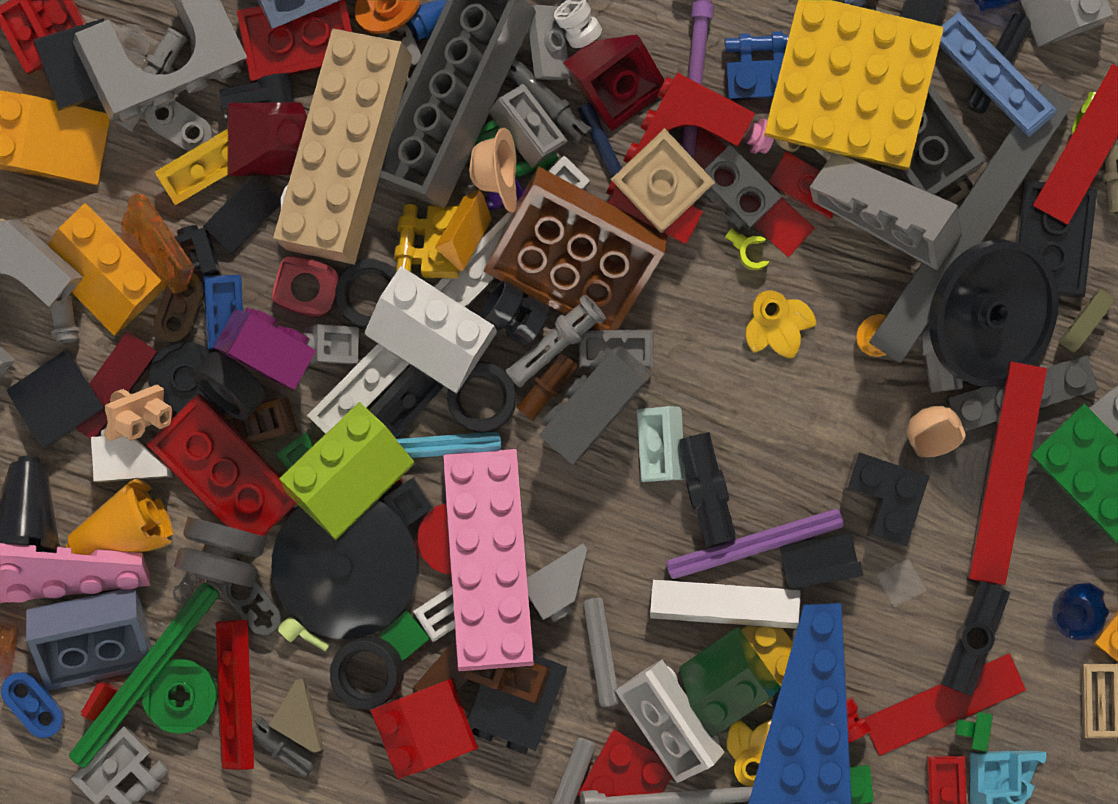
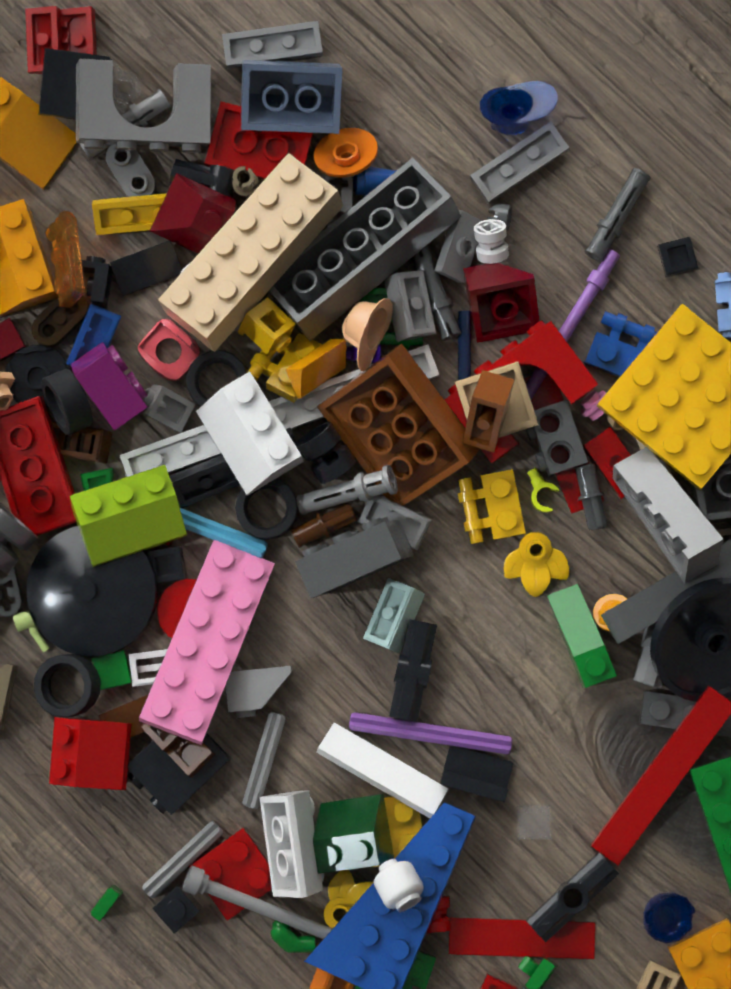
camera: 35 degrees right, 0 degrees up
(296, 75) = (244, 182): none -> dark tan pin
(395, 213) = (267, 326): none -> yellow brick
(659, 191) = (488, 410): none -> dark orange slope
(715, 282) = (501, 503): none -> yellow plate
(799, 708) = (398, 885): none -> white head
(800, 230) = (591, 497): none -> dark grey axle
(859, 374) = (581, 636): none -> slope
(897, 493) = (565, 751): black brick -> none
(935, 431) = (620, 713): light nougat hair -> none

